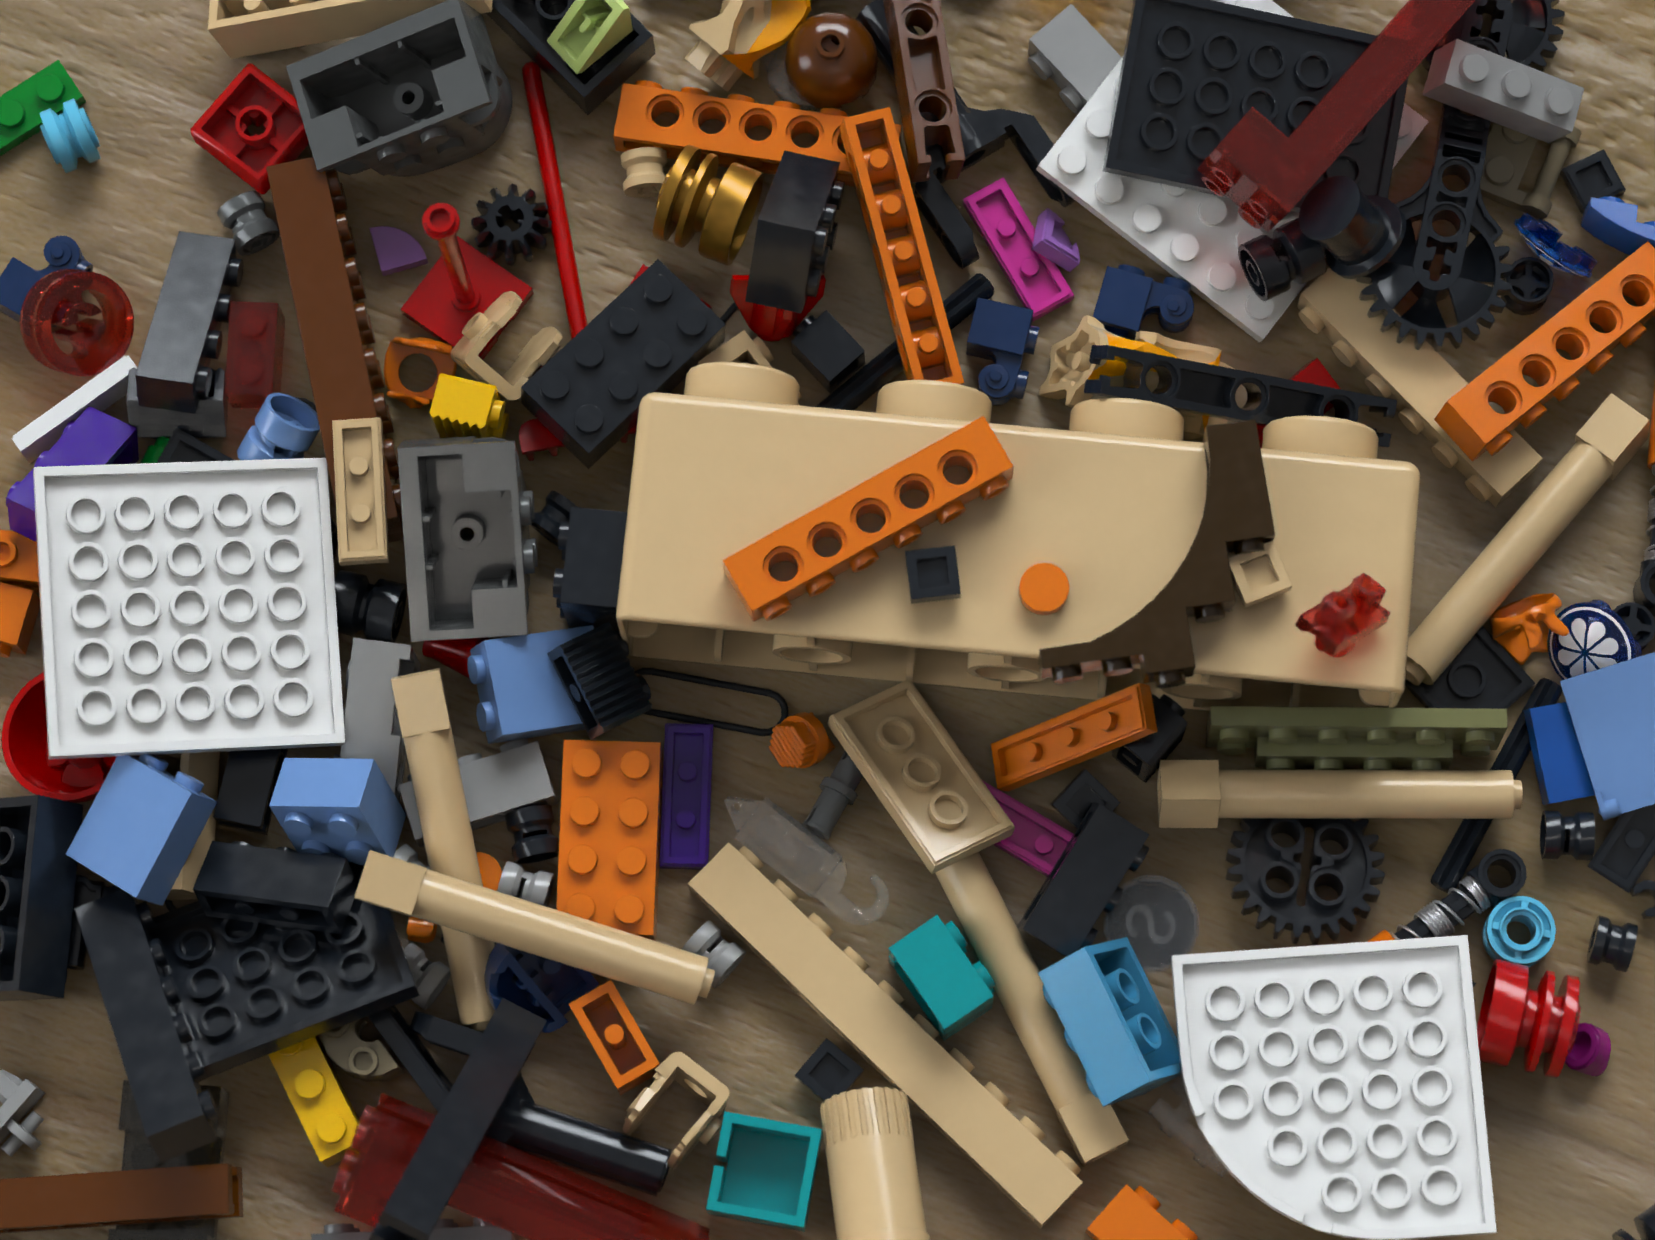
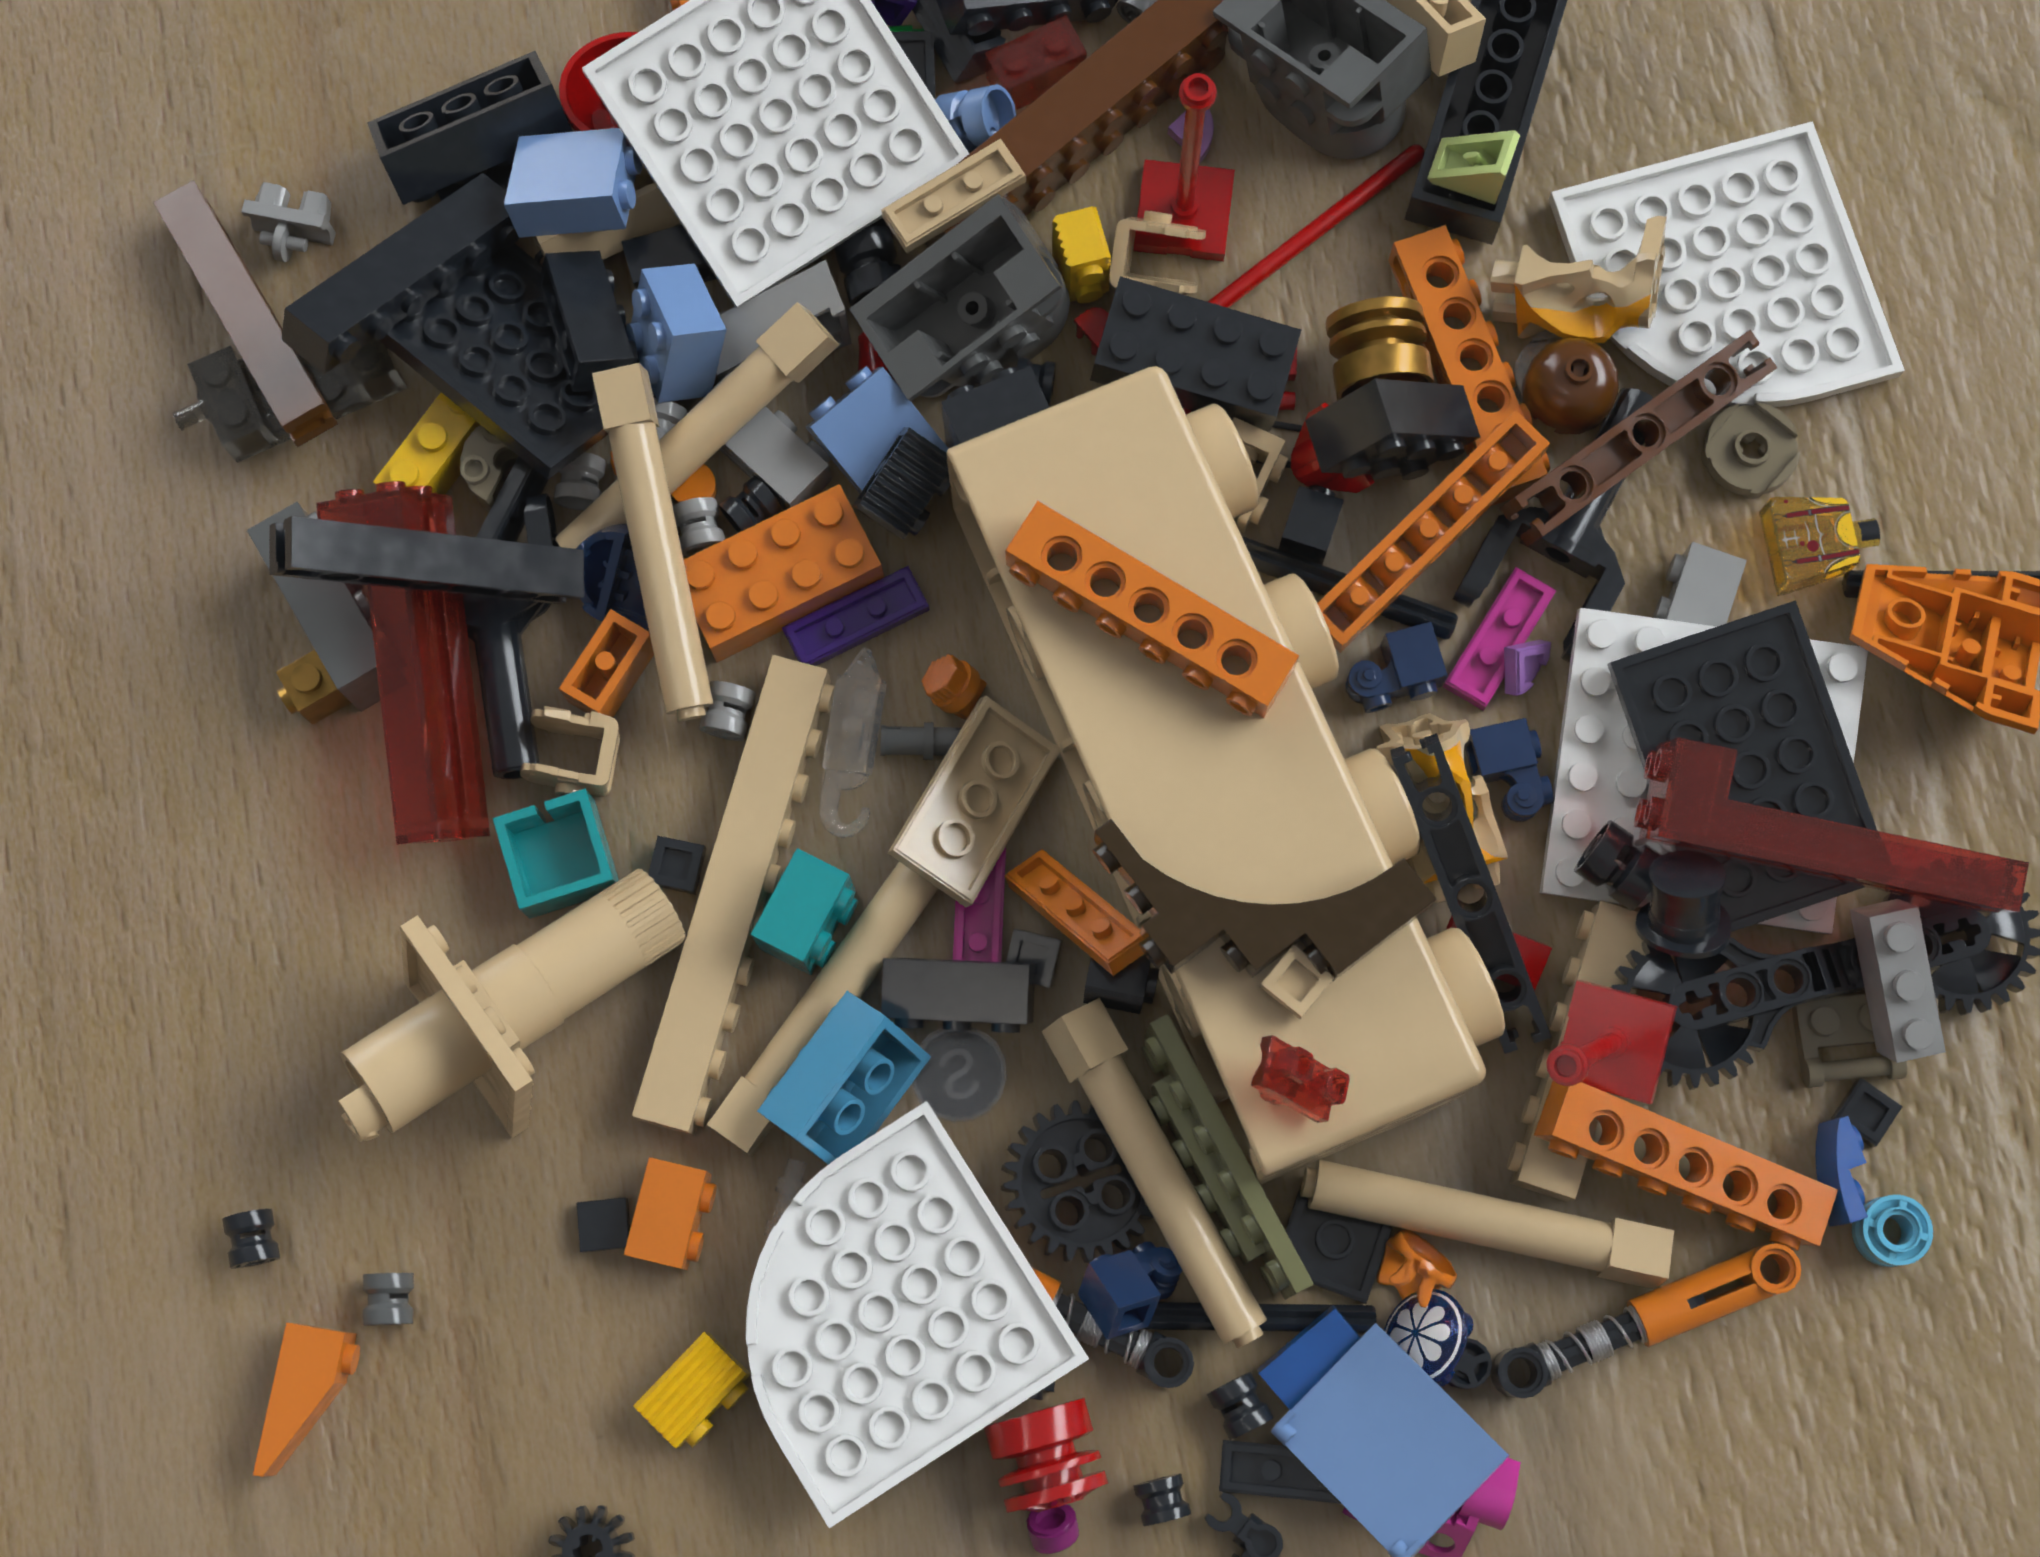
camera: 60 degrees right, 0 degrees up
(399, 350) = (1110, 178): orange piece -> none
(500, 237) = (1271, 191): black gear -> none
(644, 171) = (1381, 283): tan wheel -> none
(721, 684) = (929, 598): black piece -> none
(933, 574) = (1132, 692): black plate -> none
(1044, 589) = (1175, 798): orange tile -> none
(1420, 873) = (1127, 1286): none -> dark blue brick
(1434, 351) = (1613, 1042): none -> red tile
(1523, 910) = (1149, 1403): medium azure wheel -> none
(1529, 276) = (1739, 1097): black wheel -> none
(1543, 242) = (1778, 1099): clear blue dish -> none

